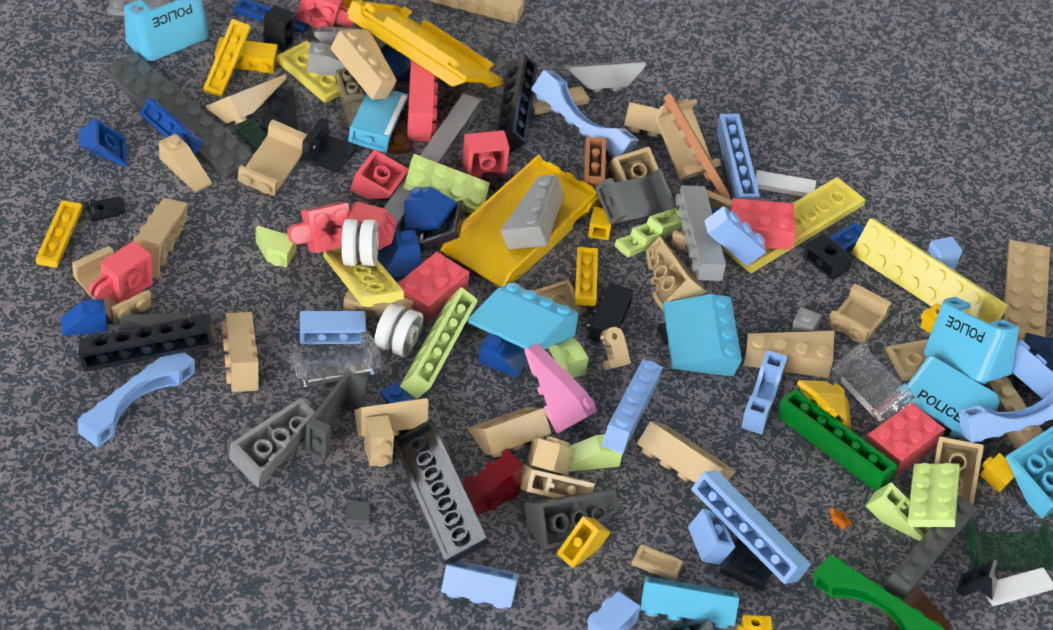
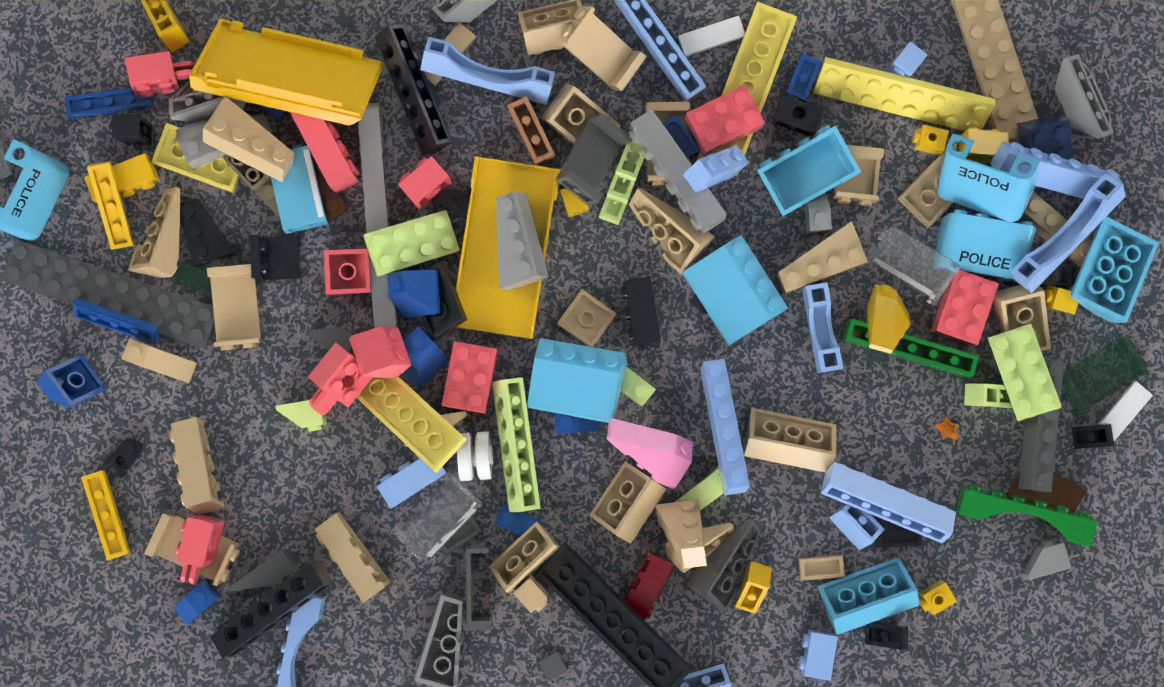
camera: 25 degrees left, 40 degrees up
(360, 242) = (388, 394): white wheel -> none
(586, 276) = (597, 279): yellow plate -> none
(615, 347) = (675, 363): tan leg -> none
(692, 141) = (613, 59): nougat plate -> none
(815, 284) = (808, 170): none -> medium azure windscreen

